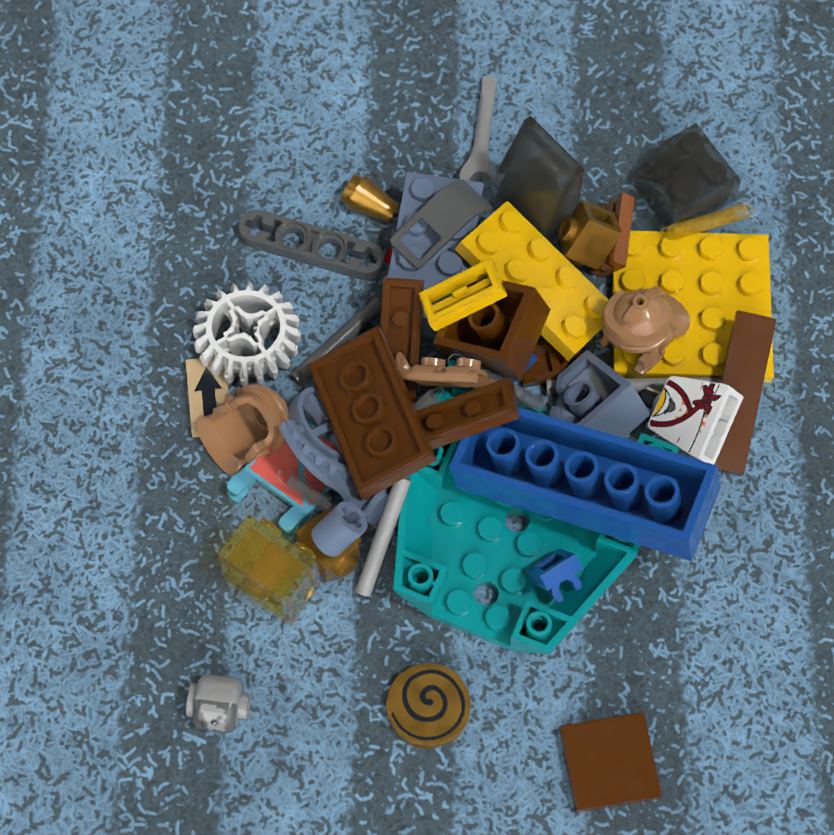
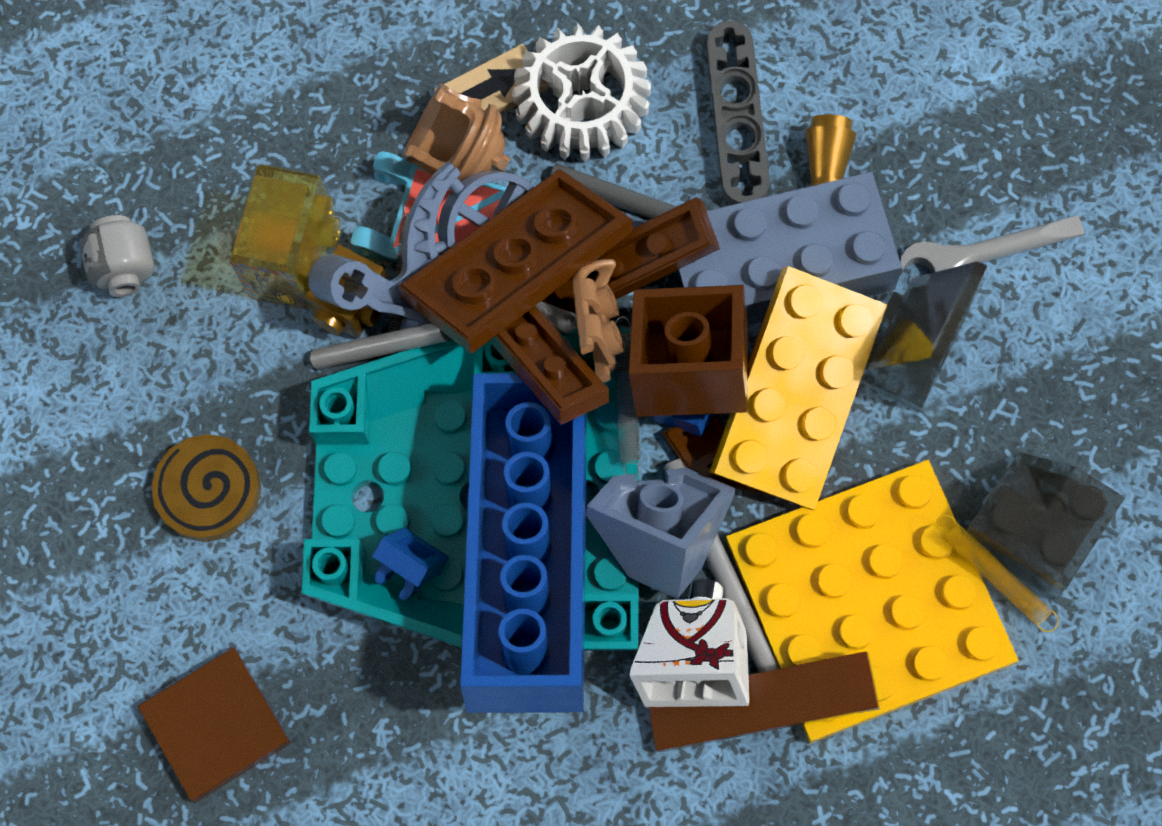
camera: 75 degrees right, 5 degrees up
(446, 215) = (822, 237): dark grey piece -> none
(463, 299) = (697, 298): yellow tile -> none
(589, 234) = (896, 426): pearl gold brick -> none
(617, 258) = (918, 460): dark orange tile -> none
(644, 323) = (793, 540): medium nougat helmet -> none

